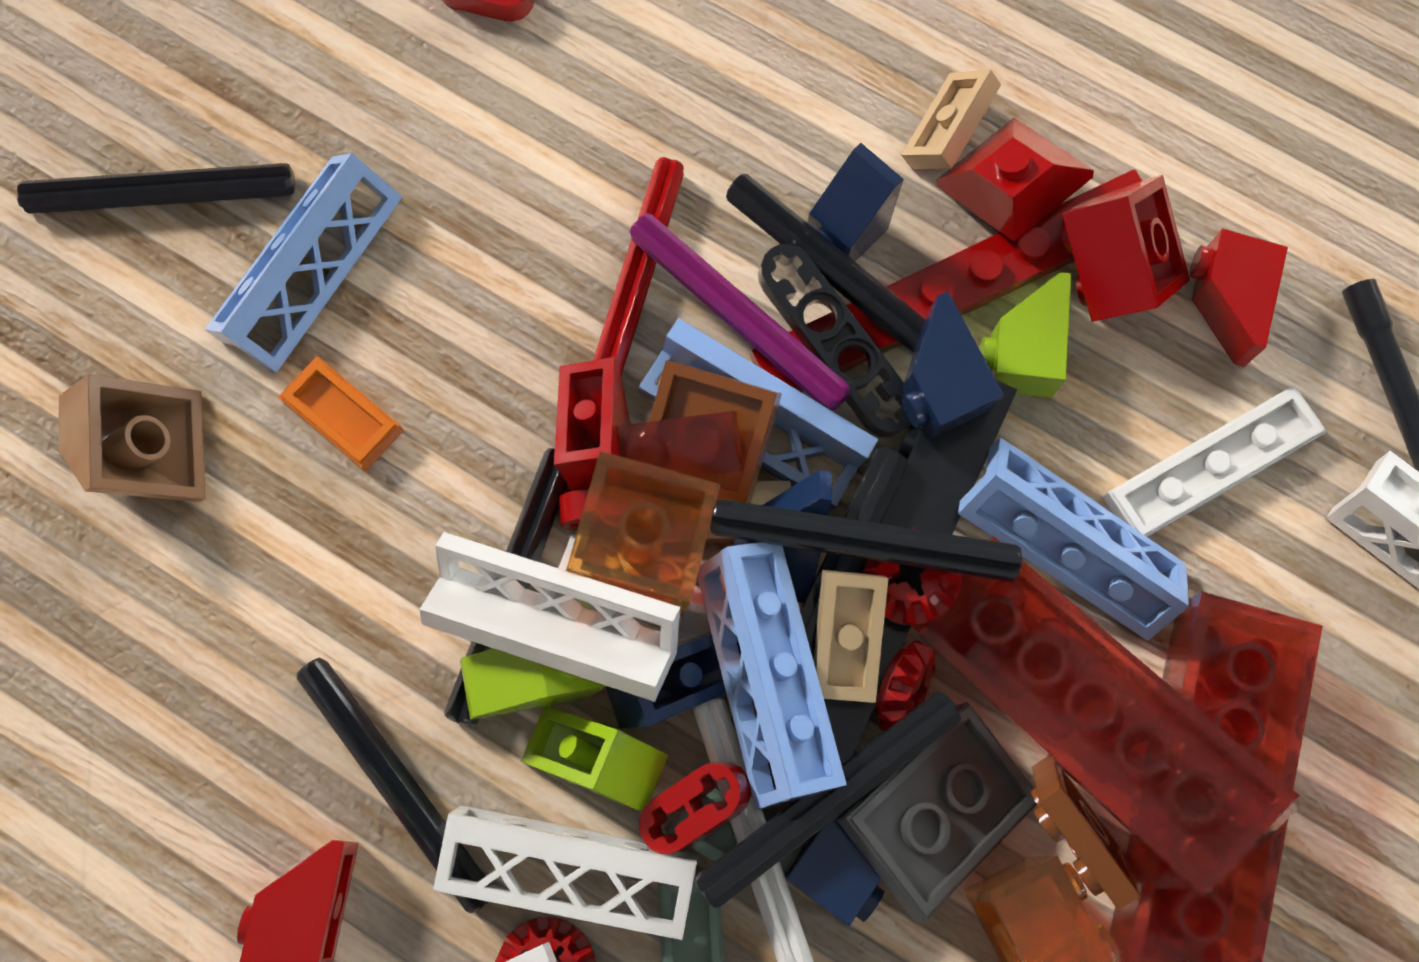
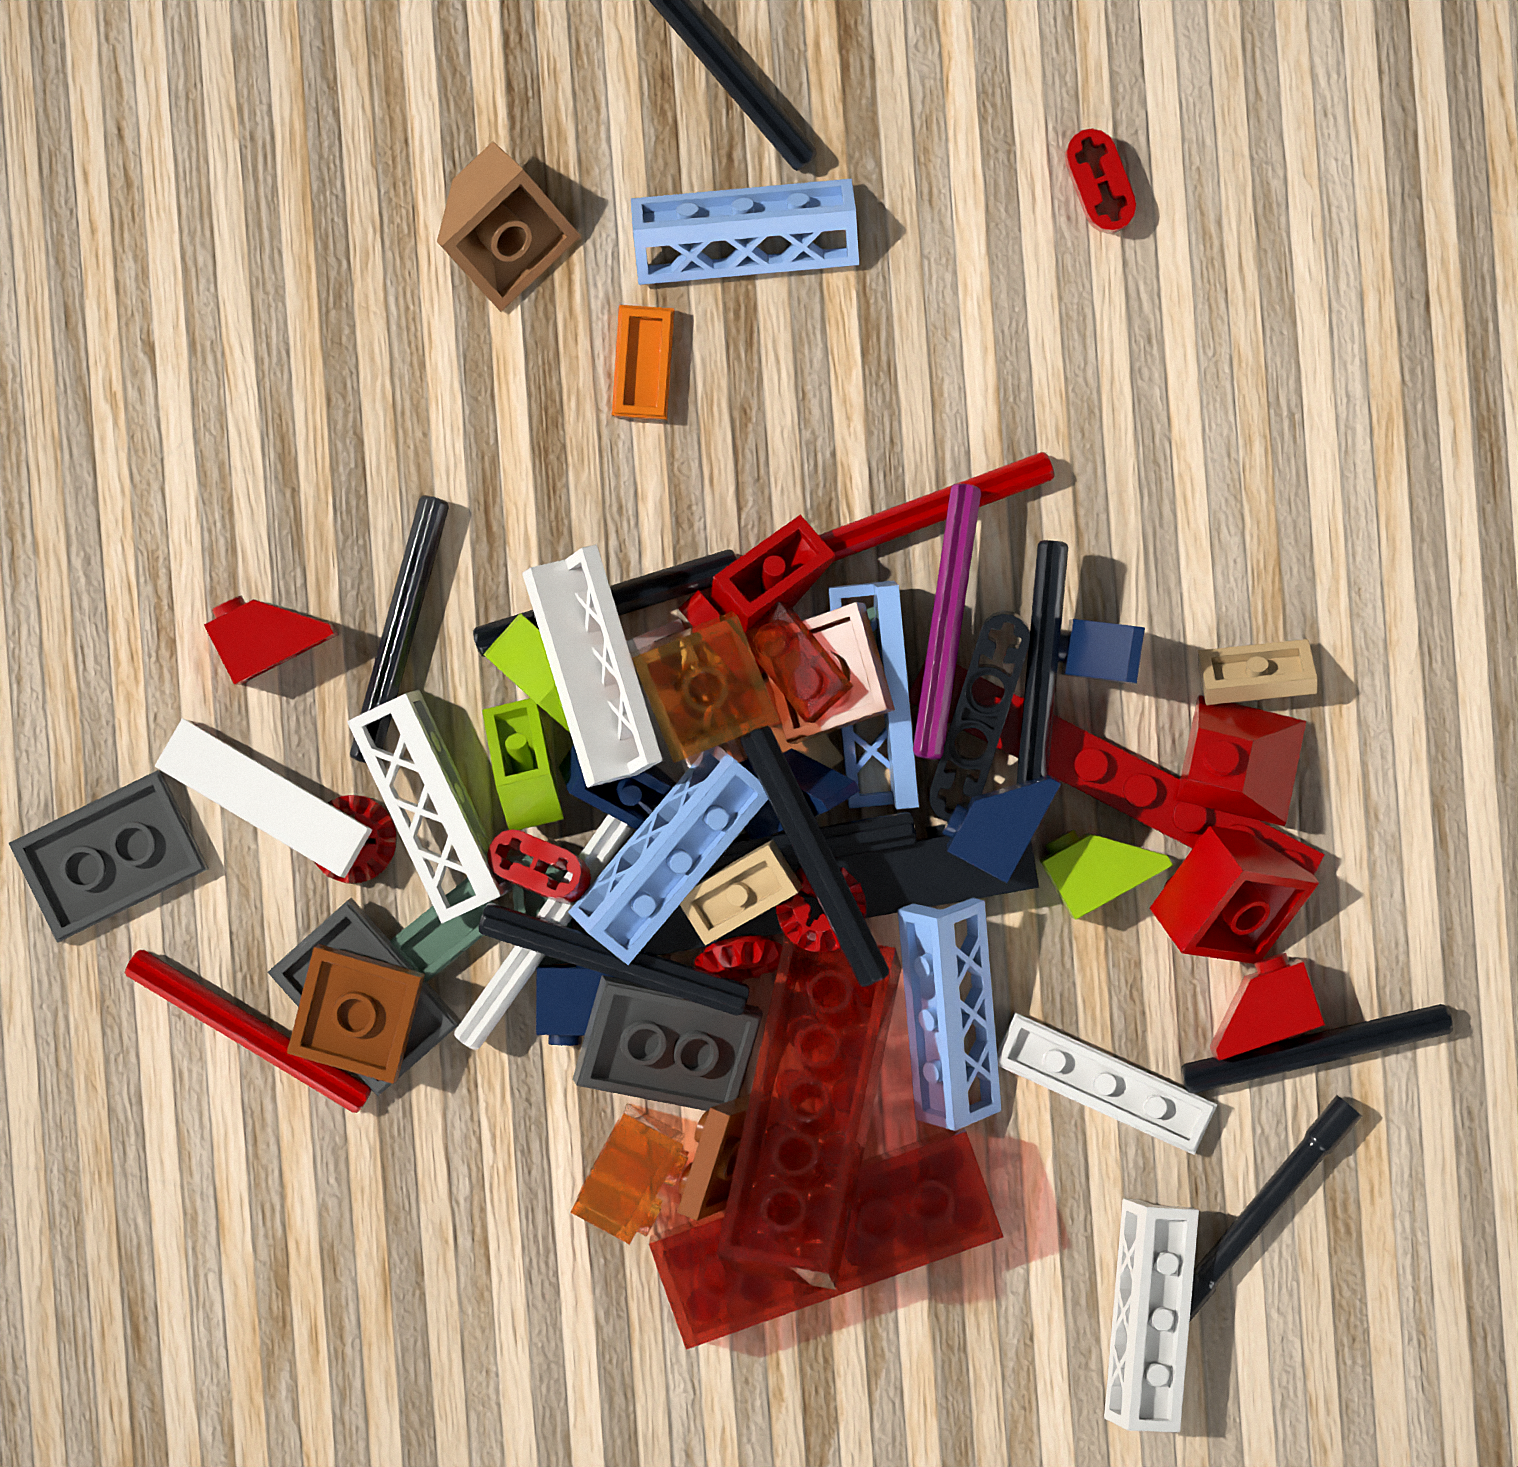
camera: 55 degrees right, 15 degrees up
(1300, 263) = (1318, 1048): none -> black axle

